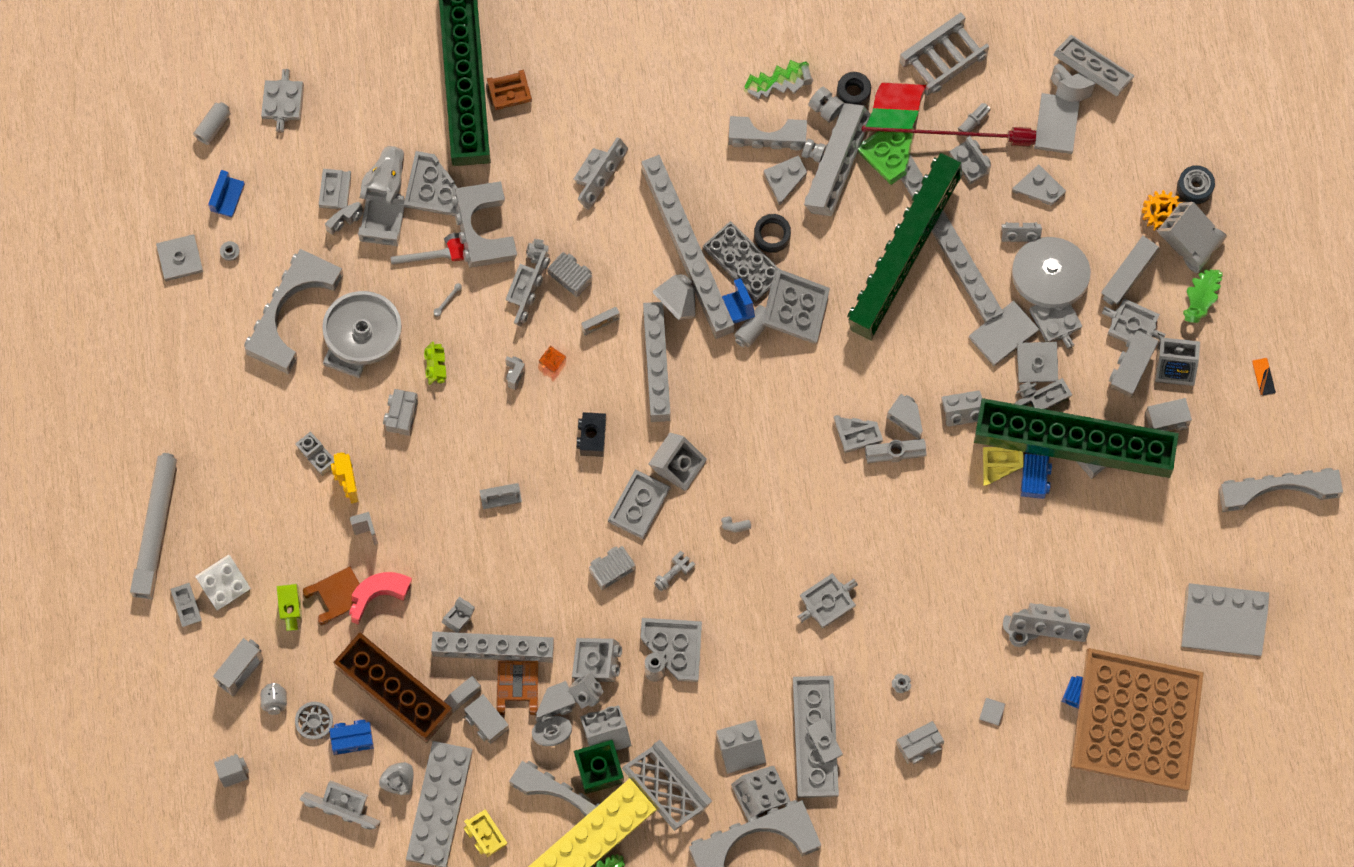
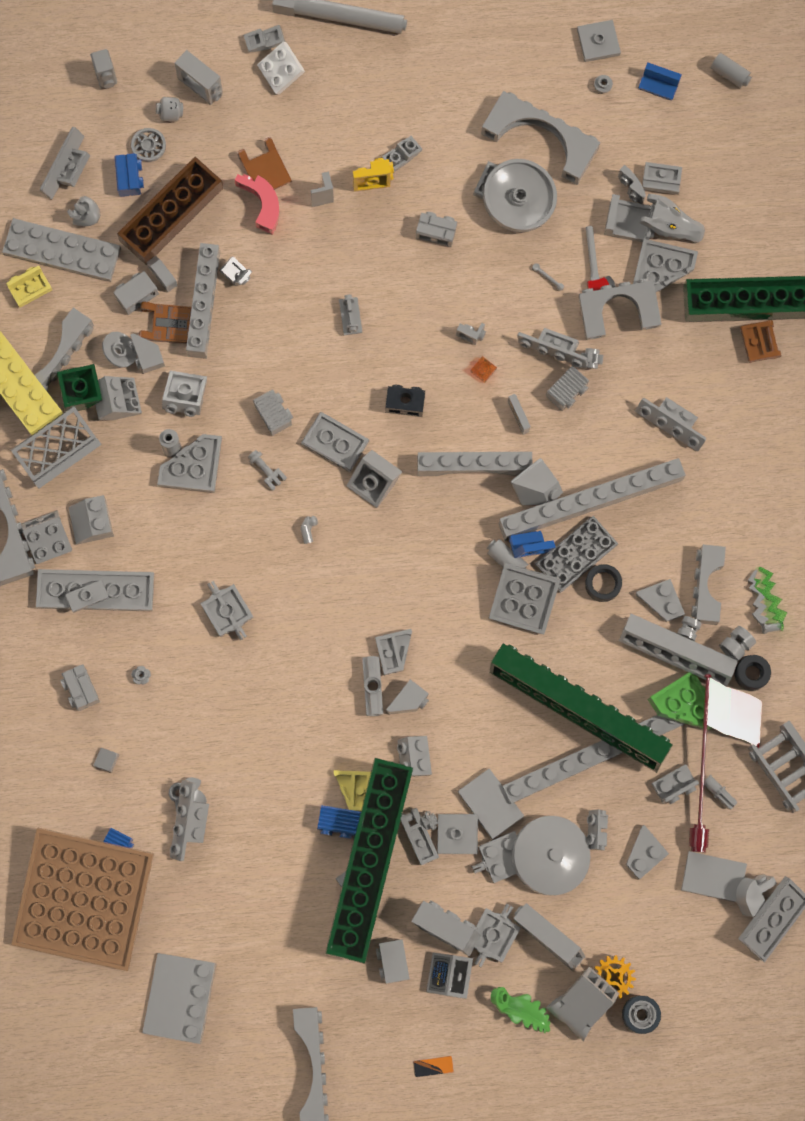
camera: 90 degrees right, 5 degrees up
(282, 100) = (754, 134): light grey plate -> none
(289, 596) = (255, 123): lime torso -> none
(434, 371) = (491, 261): lime hinge -> none
(586, 690) = (153, 380): light grey brick -> none

